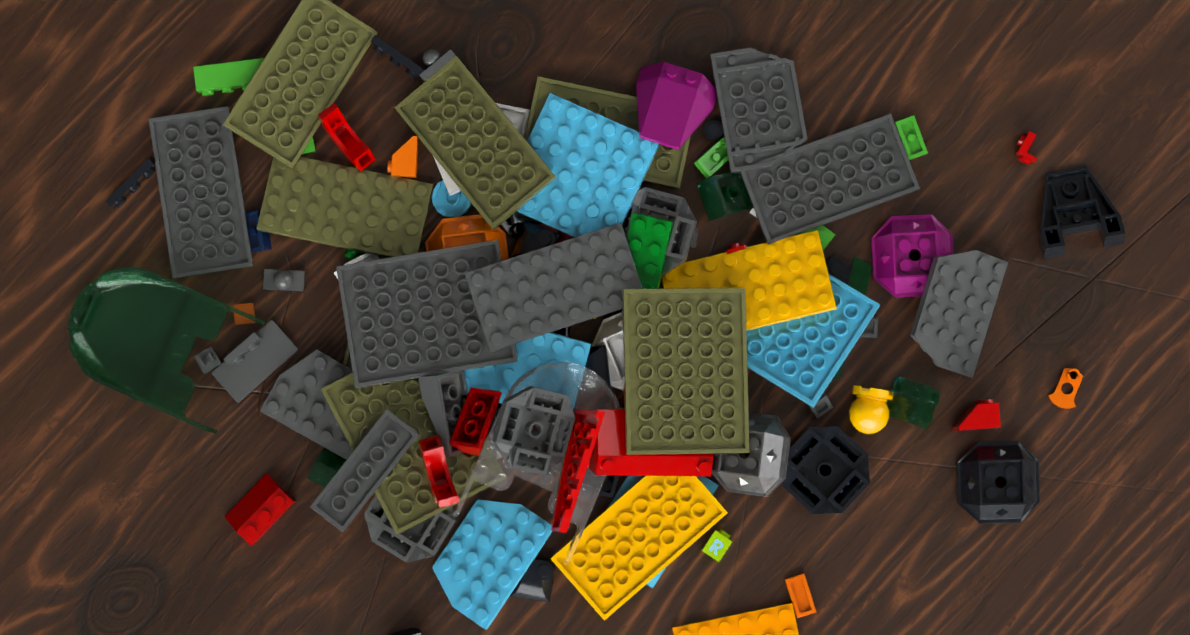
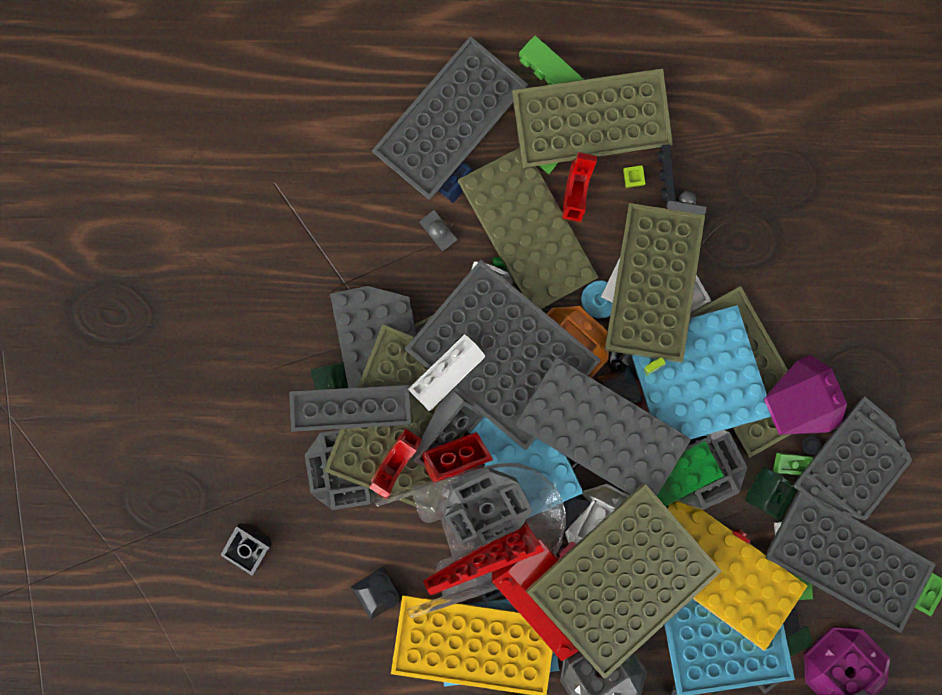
camera: 45 degrees right, 0 degrees up
(132, 184) = (413, 64): black plate -> none
(138, 332) = (311, 159): clear green windscreen -> none
(208, 360) = (335, 226): dark grey tile -> none
(247, 308) = (390, 223): dark orange tile -> none
(254, 361) = (362, 259): dark grey bracket -> none
(259, 509) = (259, 354): red slope -> none
(376, 85) = (634, 176): none -> lime plate
(402, 369) = (447, 372): none -> white panel
(405, 160) = (598, 243): orange slope -> none
(489, 557) = (365, 550): medium azure plate -> none
(539, 201) = (654, 366): none -> lime tile

